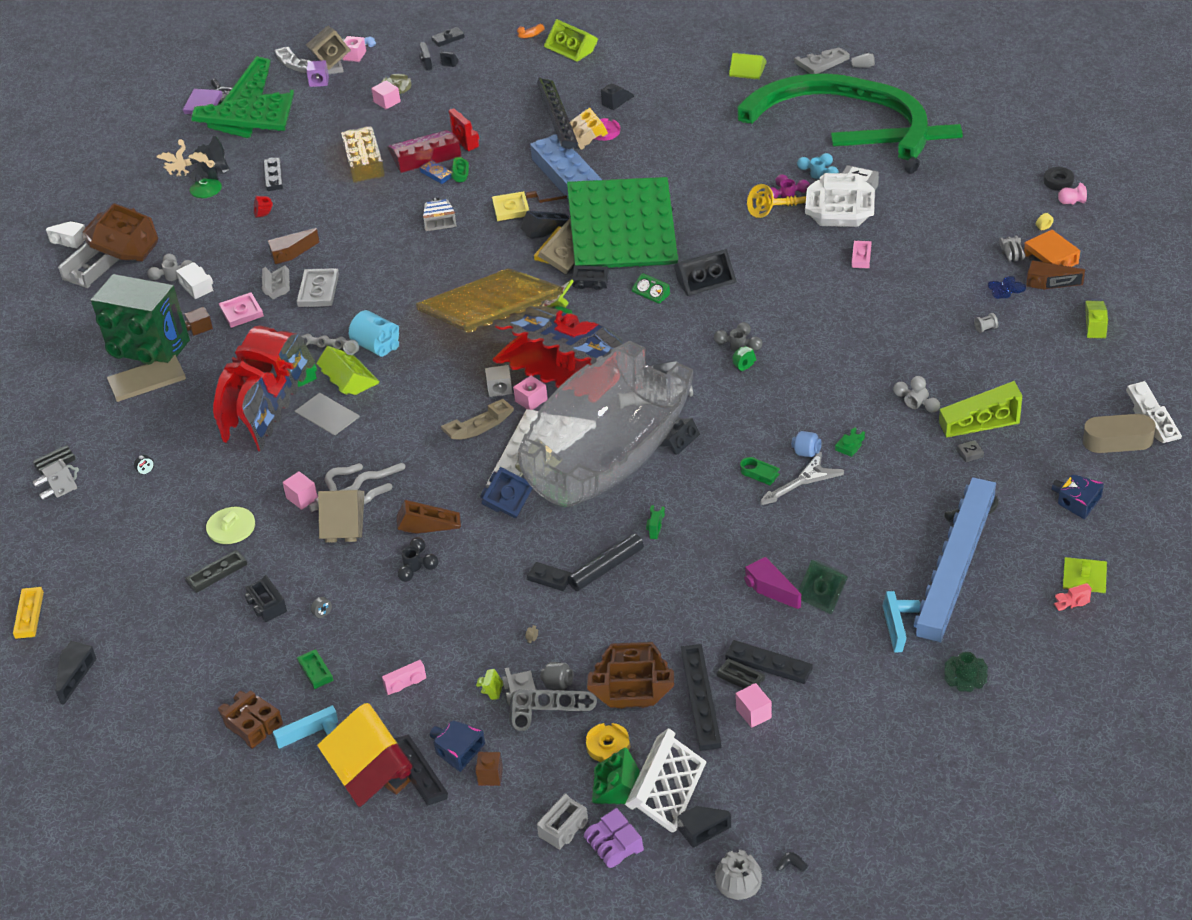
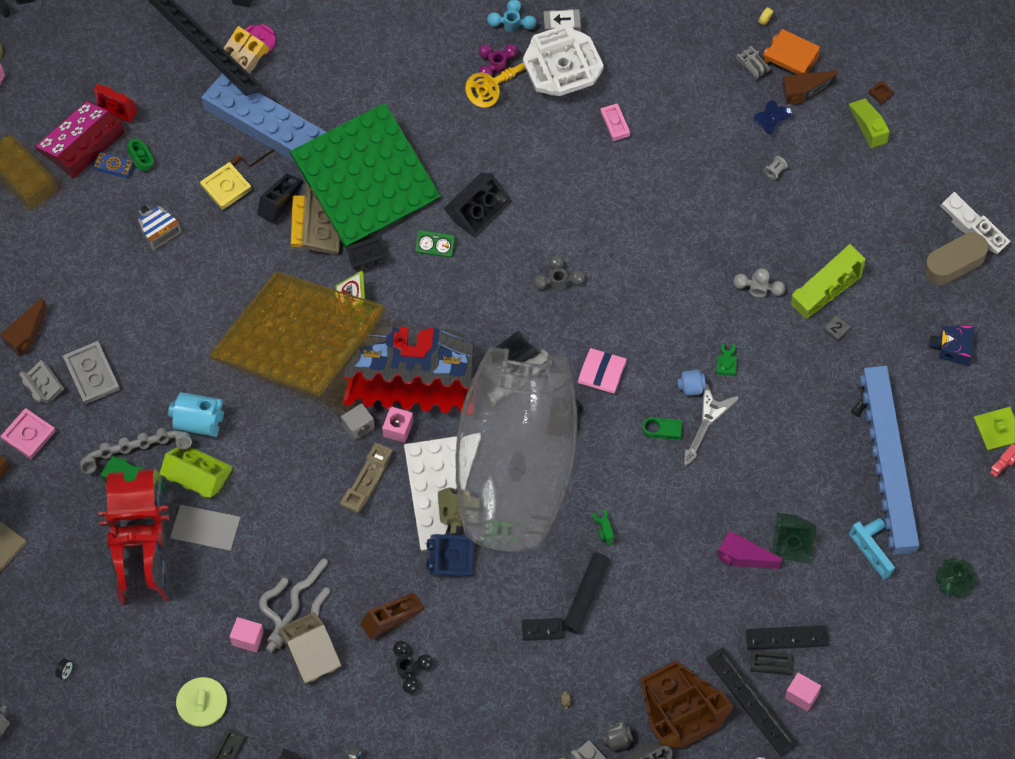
camera: 30 degrees left, 20 degrees up
(732, 413) = (602, 370): none -> bright pink slope
(743, 358) = (575, 299): green piece -> none
(1121, 301) = (881, 92): none -> reddish brown tile

